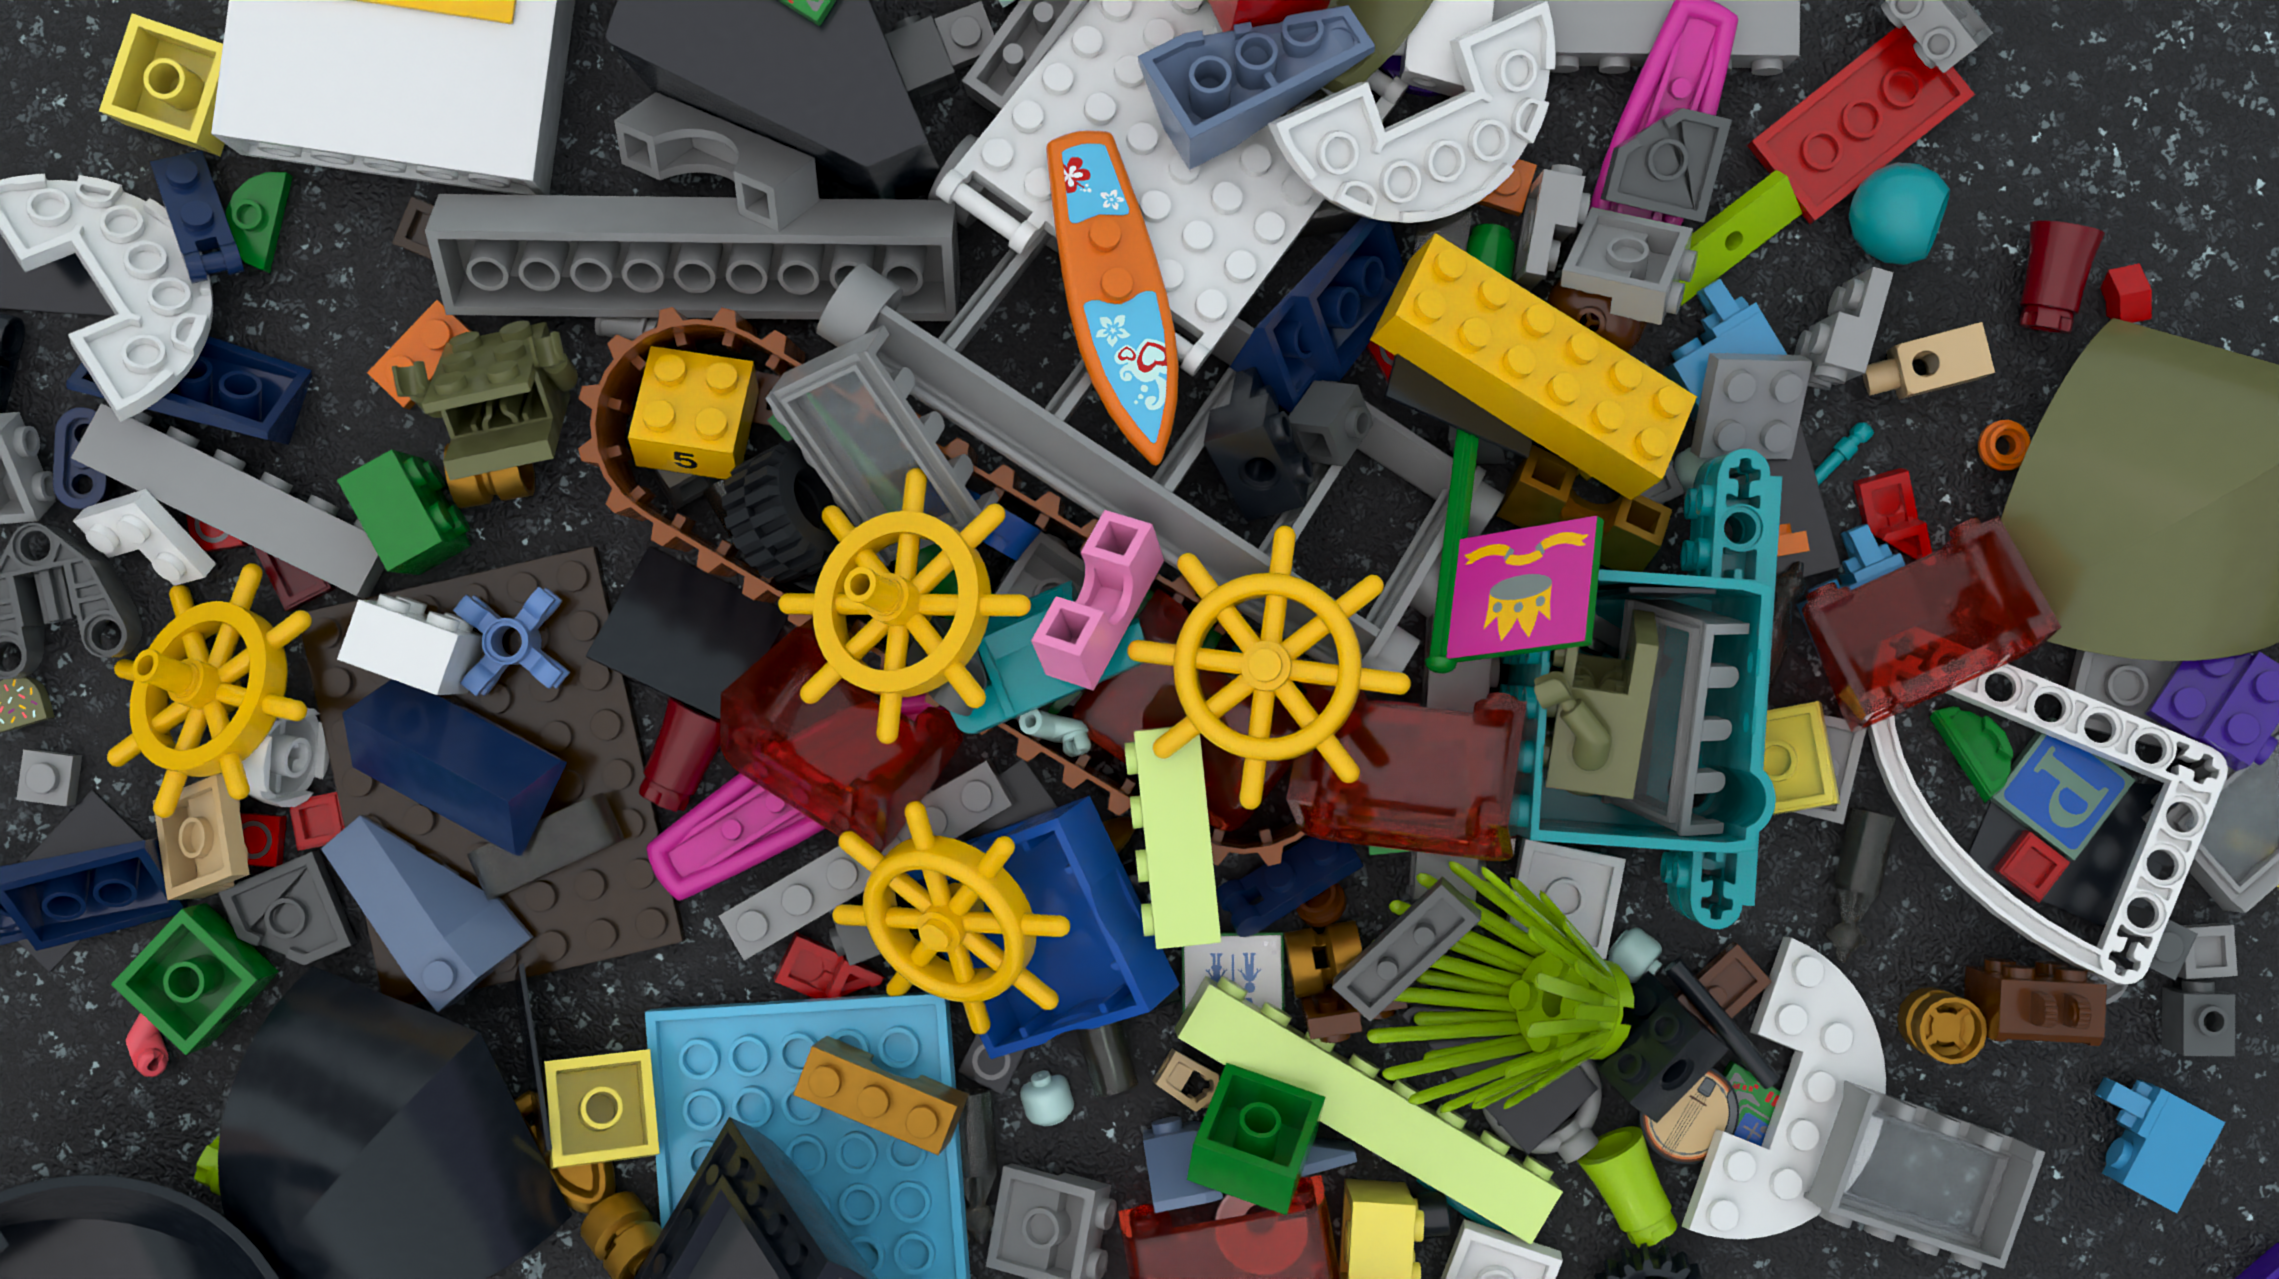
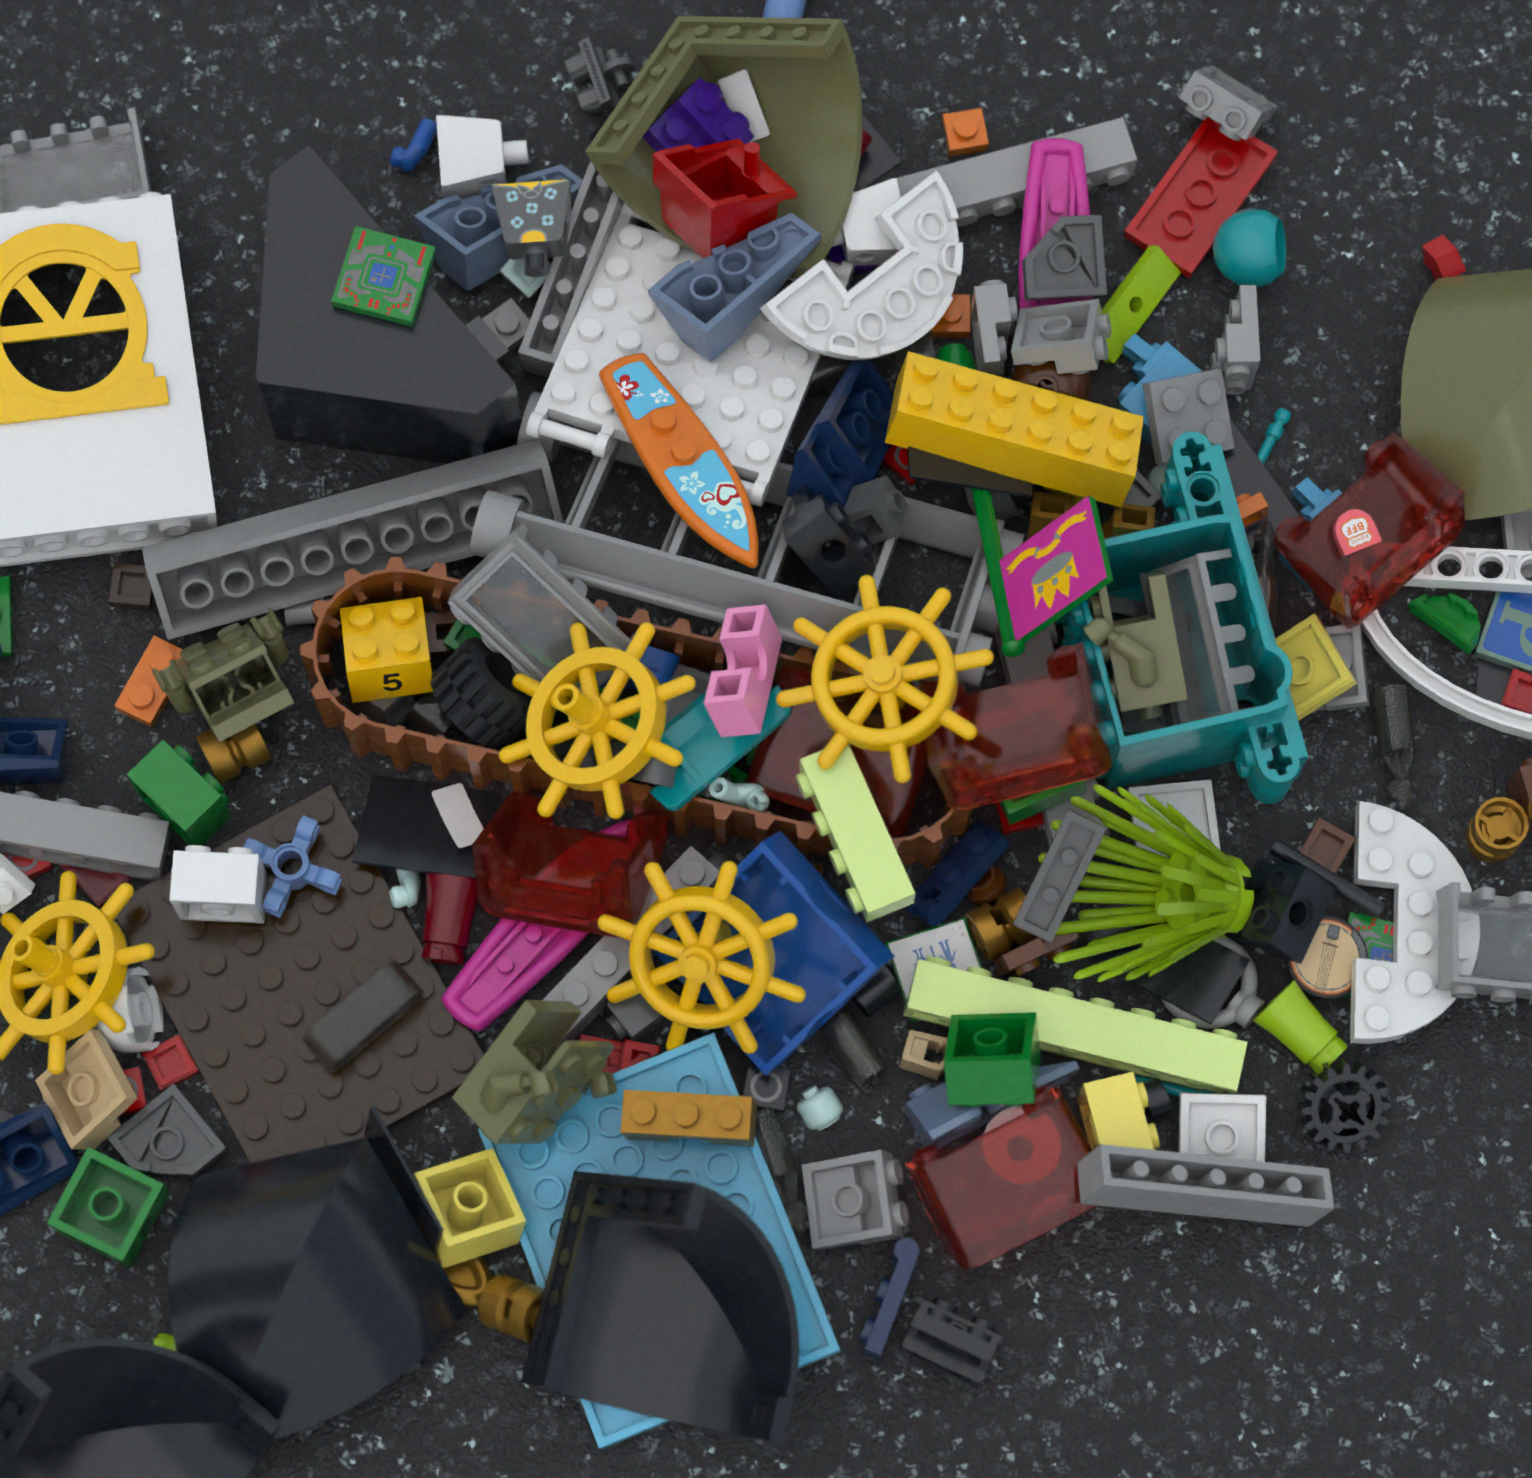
camera: 15 degrees left, 15 degrees down
(147, 1048) = (76, 1280): coral arm -> none
(425, 912) = (286, 1098): sand blue wedge -> none
(453, 762) = (272, 970): dark blue slope -> none
(643, 708) = (408, 891): none -> light aqua arm
(674, 139) = (307, 459): light grey arch -> none
(707, 999) = (530, 1080): none -> olive torso
(731, 632) = (458, 814): none -> white sticker
(1636, 953) = (1248, 850): light aqua piece -> none
(1653, 593) = (1151, 556): black piece -> none
(1891, 513) = (1324, 465): red slope -> none
(1903, 620) = (1354, 532): none -> tile
(1949, 359) = (1324, 336): tan torso -> none
(2018, 441) = (1383, 384): orange plate -> none
(2057, 274) = (1384, 258): dark red plant -> none

